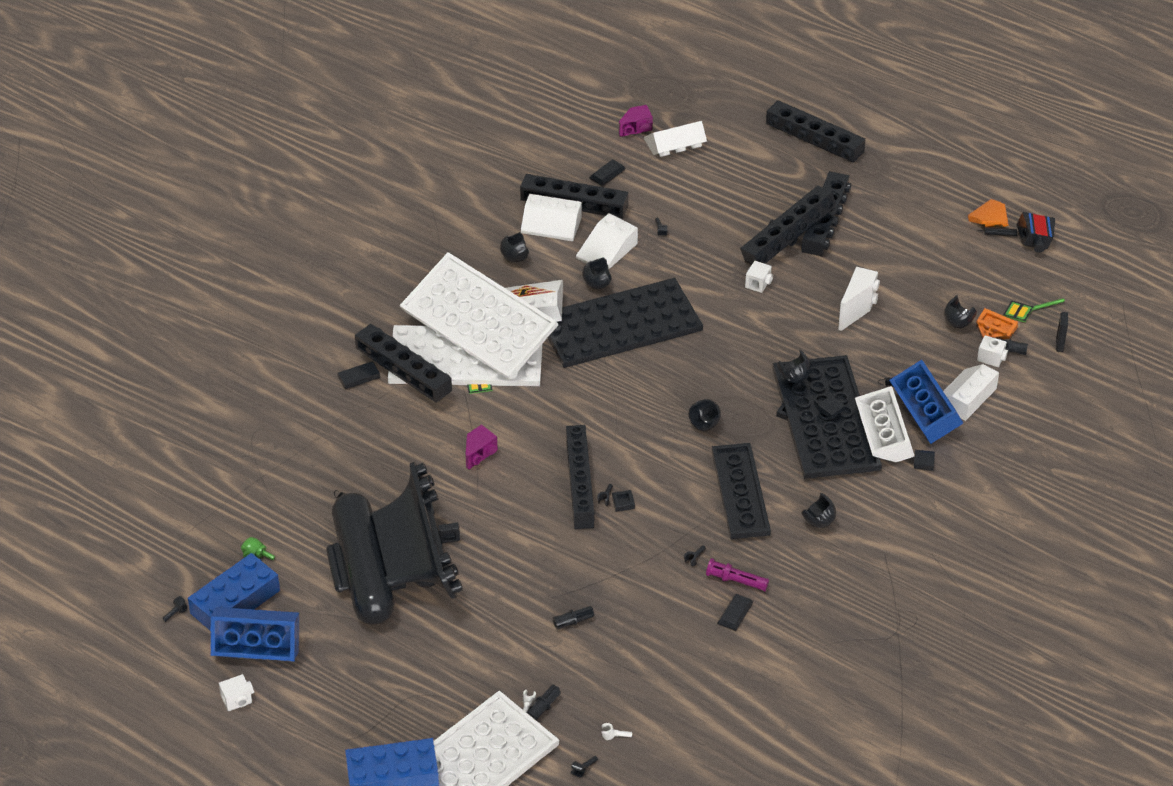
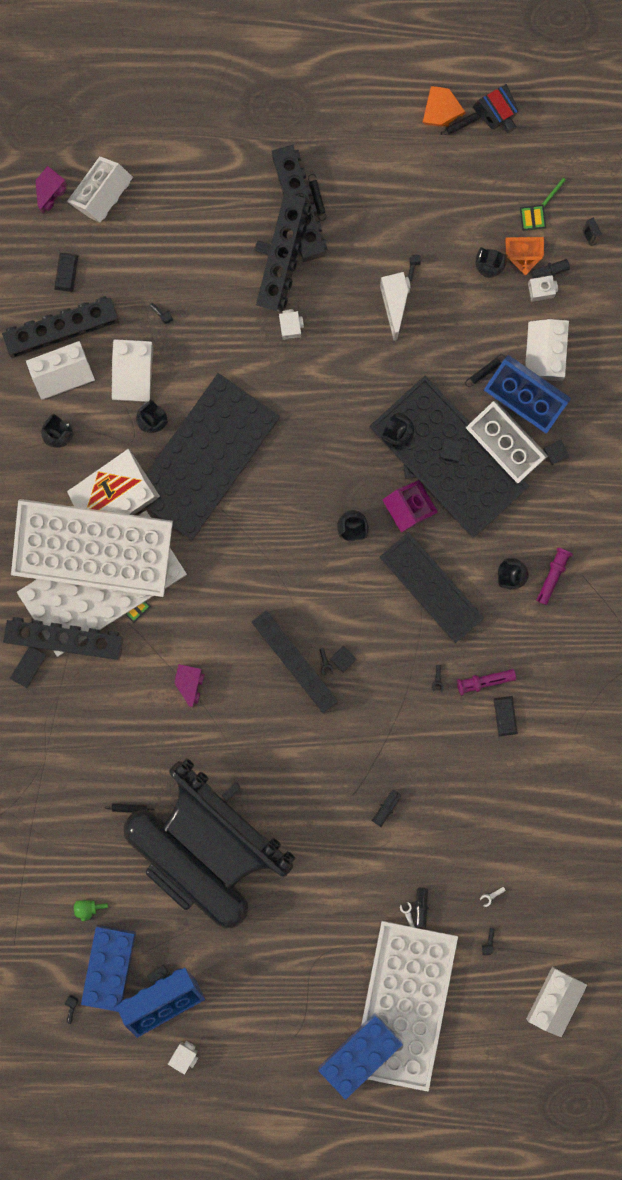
camera: 30 degrees left, 40 degrees up
(765, 428) = (410, 505): none -> magenta slope
(815, 131) = (212, 89): black brick -> none
(844, 220) = (317, 197): none -> black piece
(864, 532) = (557, 567): none -> magenta pin
(894, 288) = (414, 260): none -> black hand

